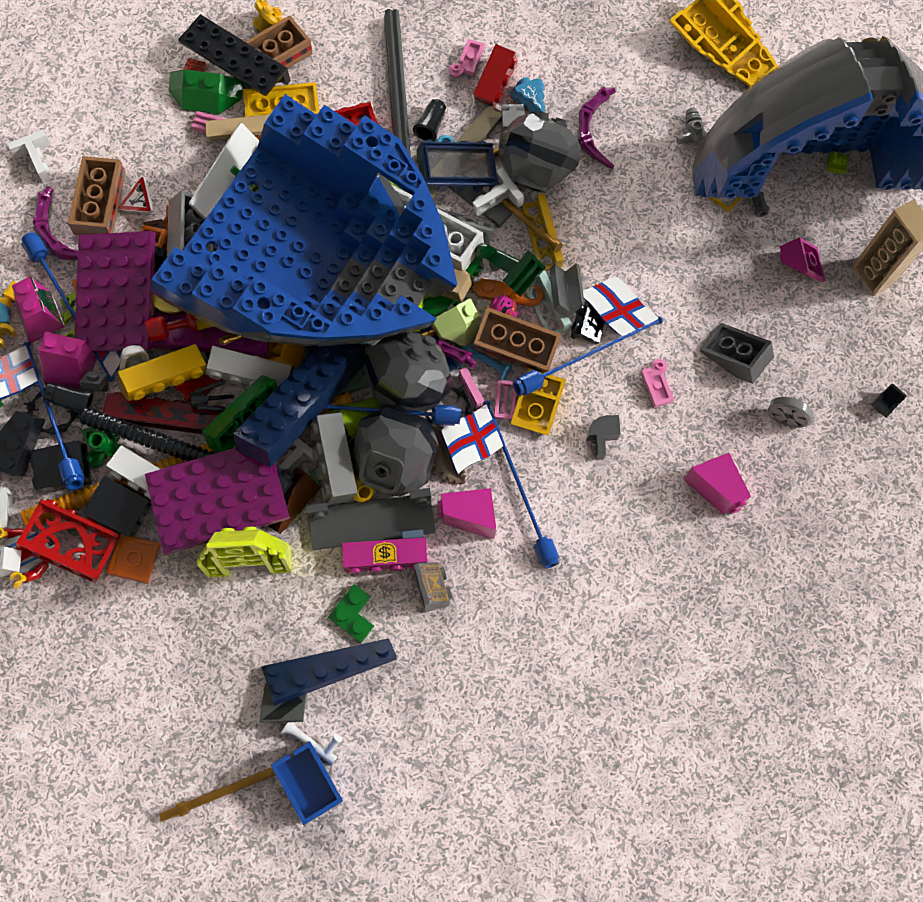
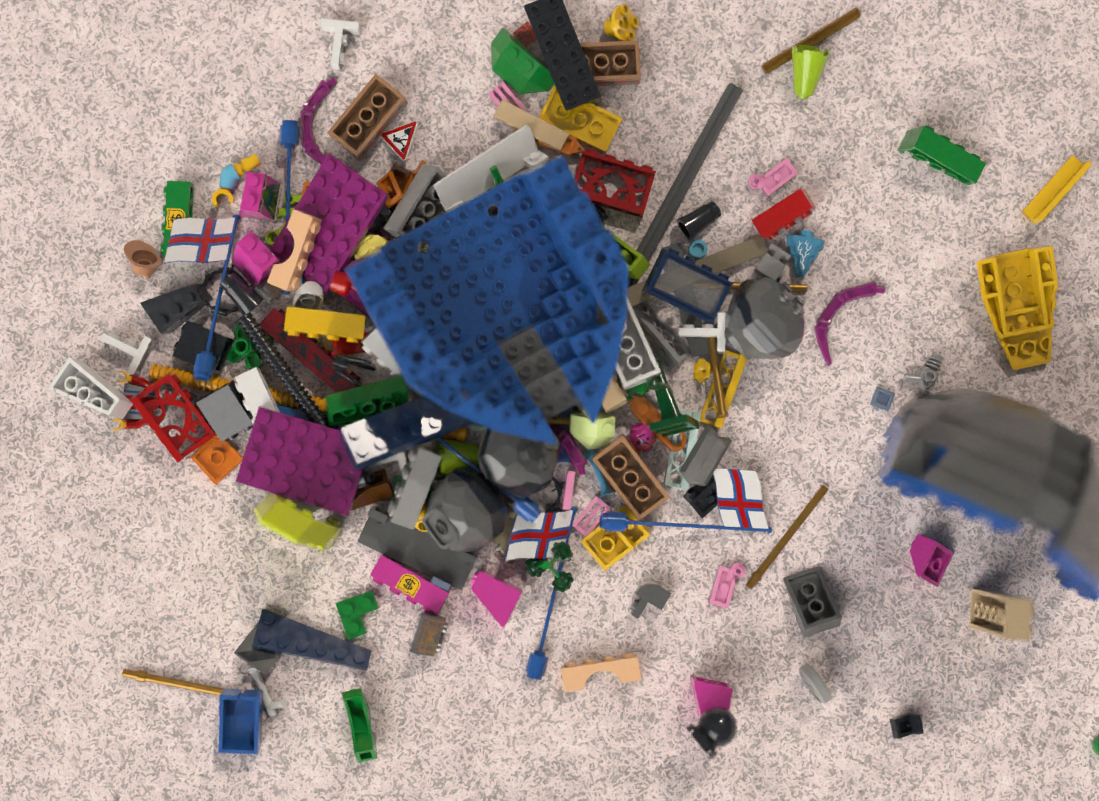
camera: 40 degrees right, 15 degrees up
(102, 352) = (304, 231): none -> light nougat arch
(423, 709) = (360, 723): none -> green arch
(501, 442) = (537, 566): none -> dark green plant
(514, 229) = (702, 370): none -> yellow plant
(624, 506) = (576, 675): none -> light nougat arch
(673, 168) = (882, 398): none -> sand blue tile
(678, 361) = (756, 576): none -> pearl gold bar
(740, 491) = (715, 729): none -> black tile

